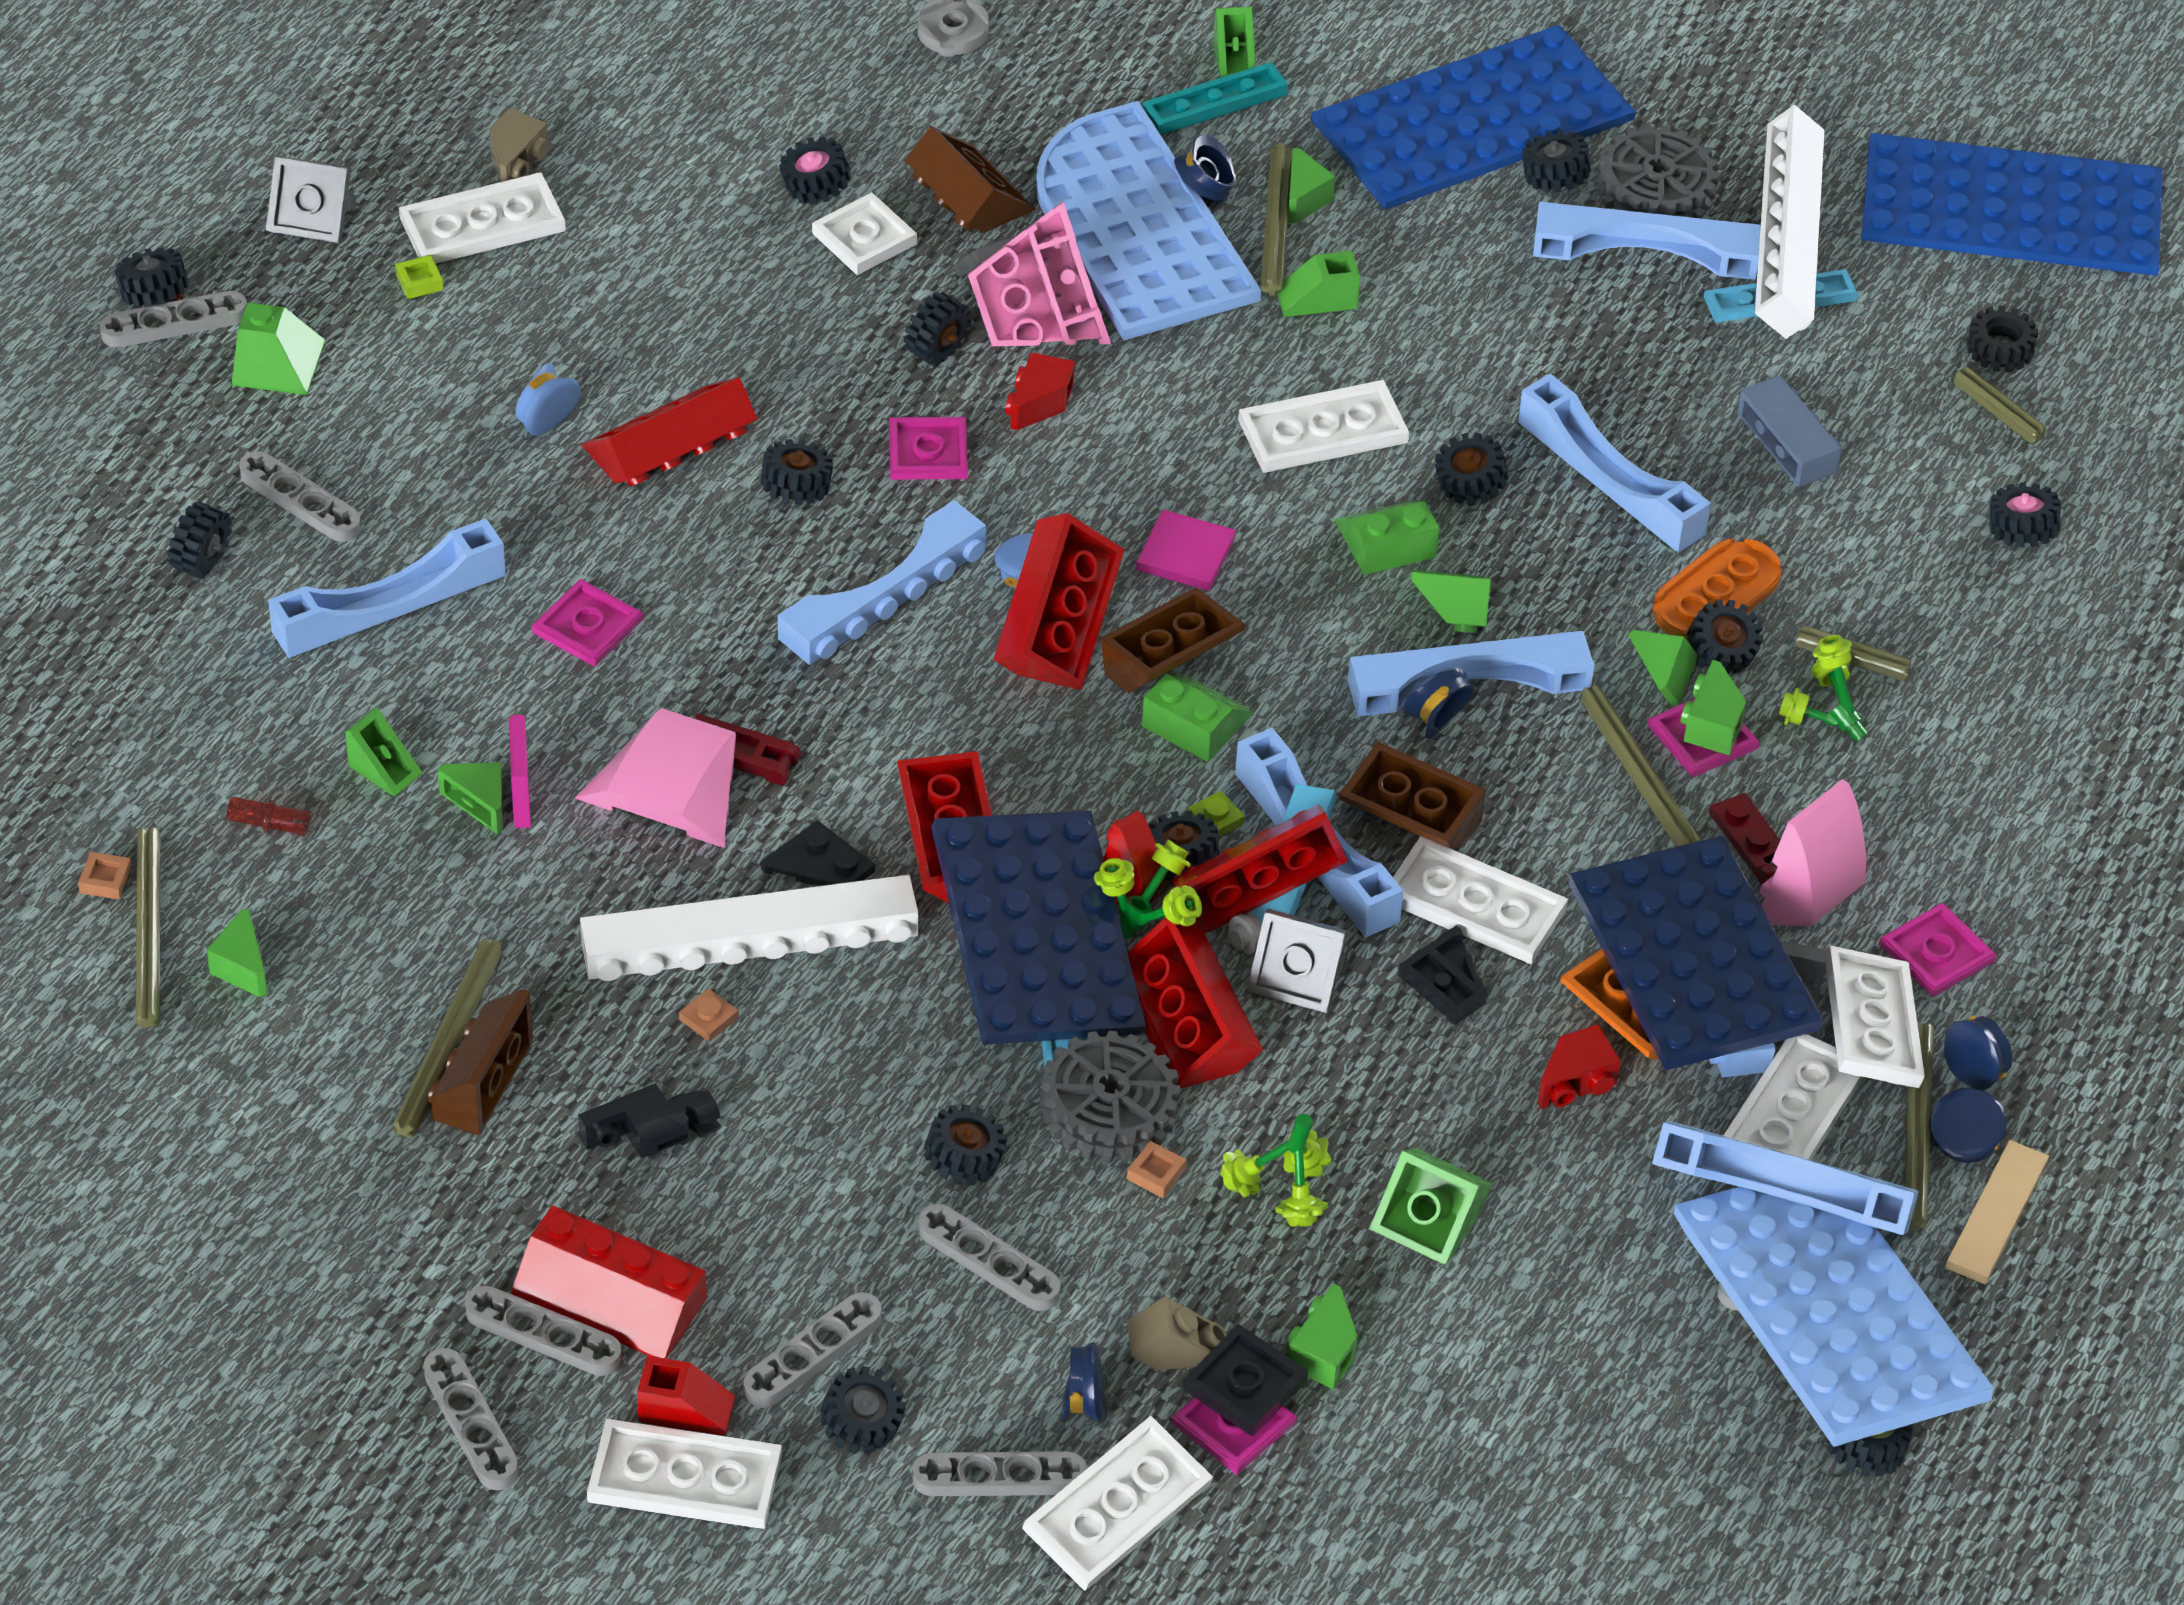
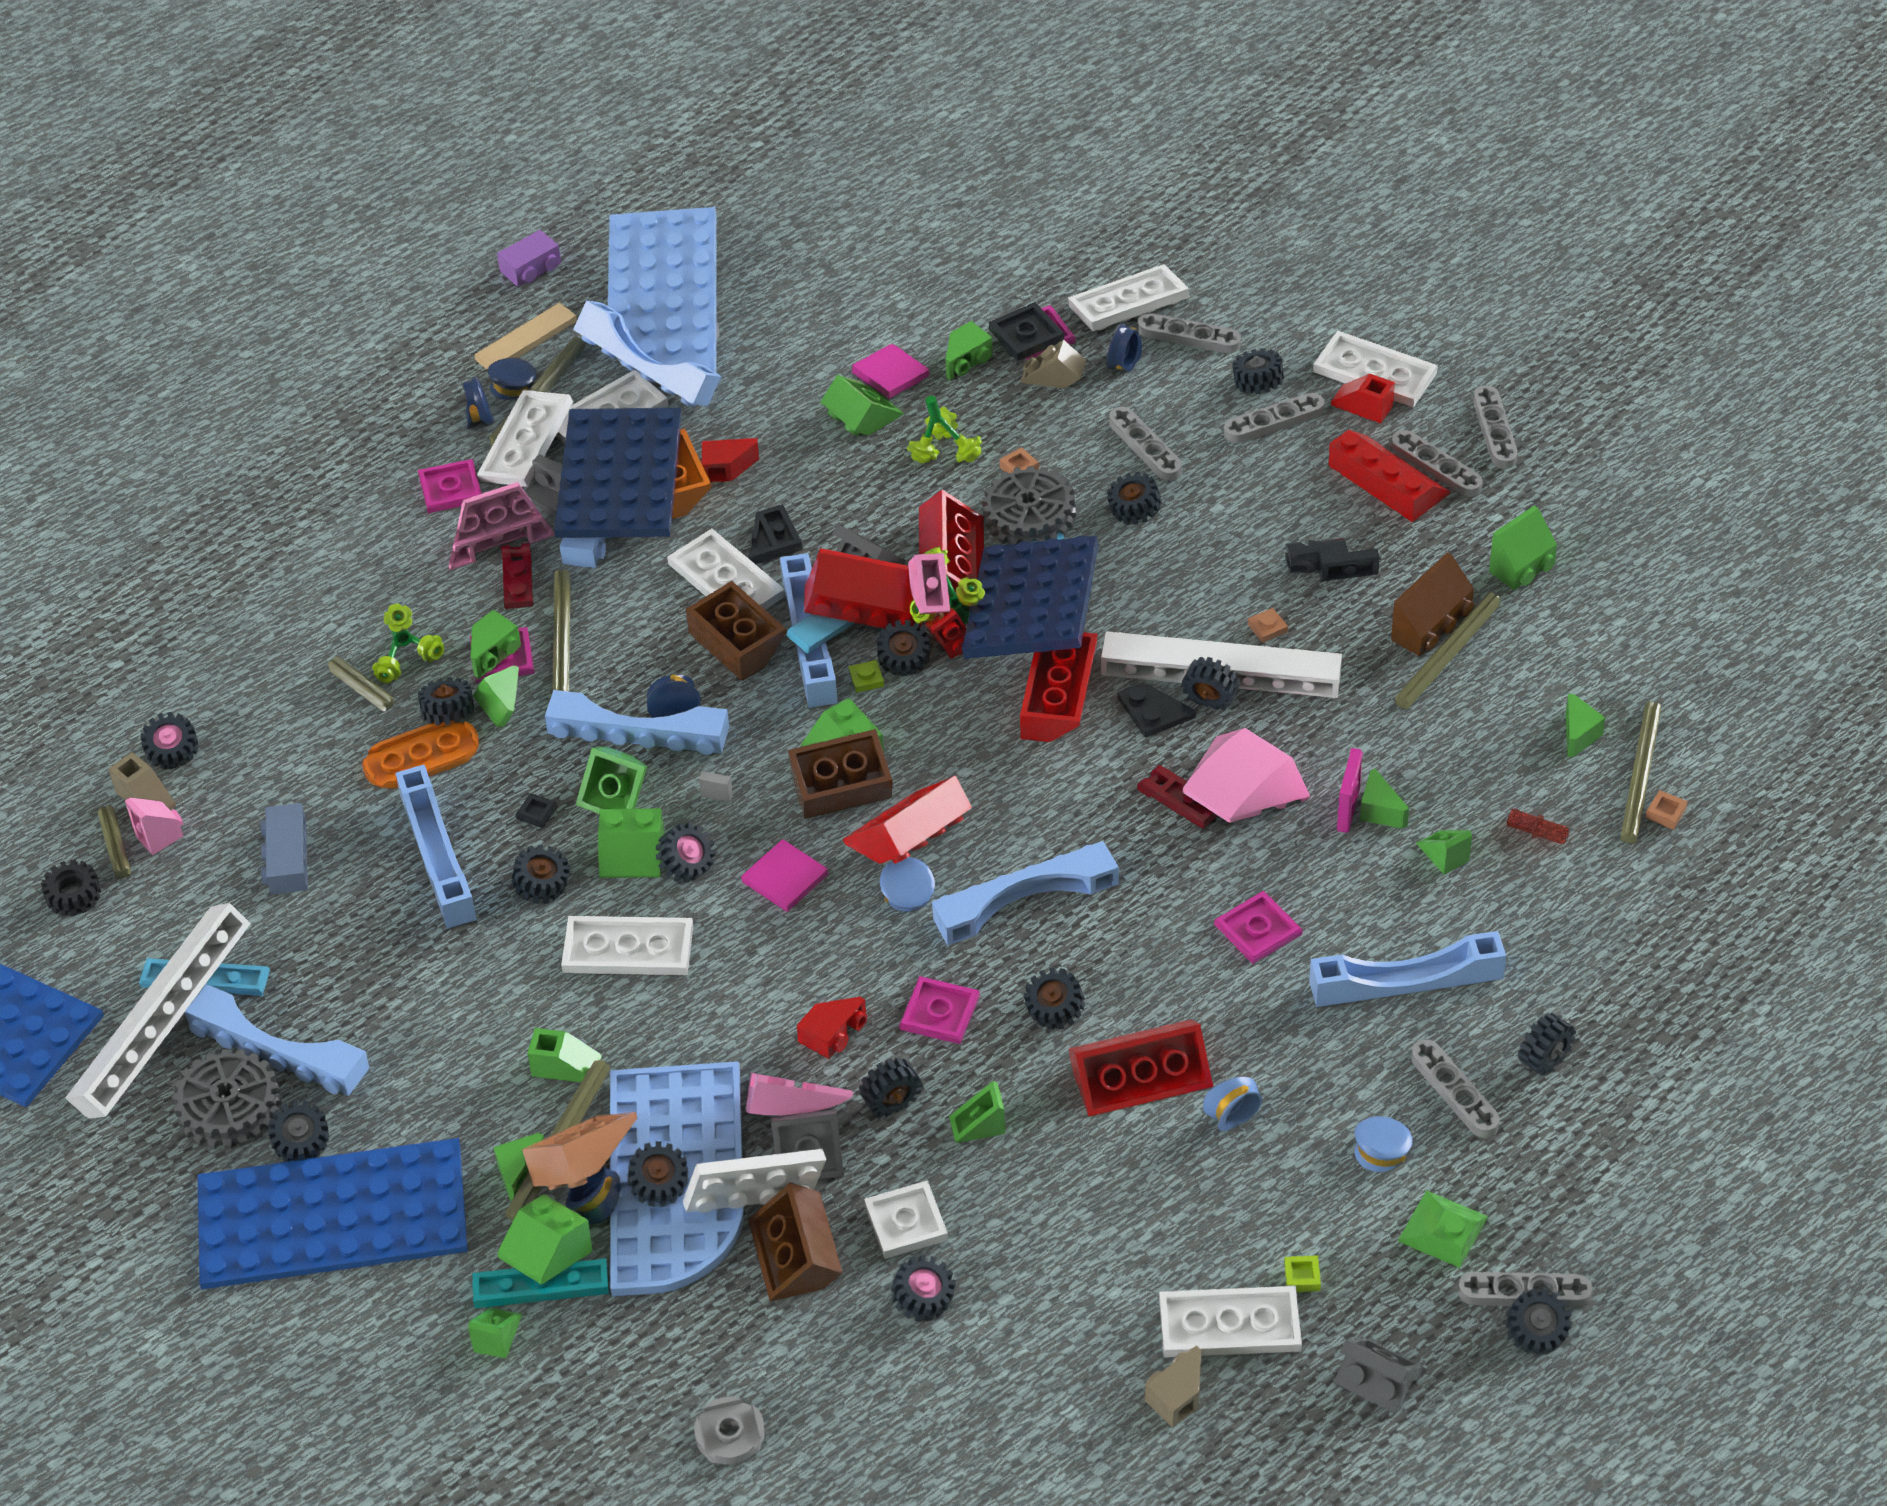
camera: 155 degrees left, 0 degrees up
(367, 413) = (1381, 1143): none -> medium blue piece
(377, 1183) = (1522, 549): none -> bright green slope
(749, 871) = (1210, 683): none -> black wheel
(825, 340) = (980, 1116): none -> bright green slope
(1033, 182) = (750, 1179): none -> white plate
(1142, 181) = (657, 1174): none -> black wheel
(1168, 844) = (929, 583): none -> bright pink slope
(1227, 115) = (545, 1239): none -> bright green slope
(1241, 185) = (576, 1151): none -> nougat slope
(1311, 519) = (685, 852): none -> black wheel
(1324, 618) = (715, 786): none -> light grey tile
(1424, 1285) = (890, 371): none -> dark pink tile
(1530, 555) = (536, 810): none -> black tile
(1960, 405) = (154, 823): none -> bright pink slope
(2011, 450) = (137, 780): none -> dark tan slope
(2083, 1335) = (529, 258): none -> medium lavender brick

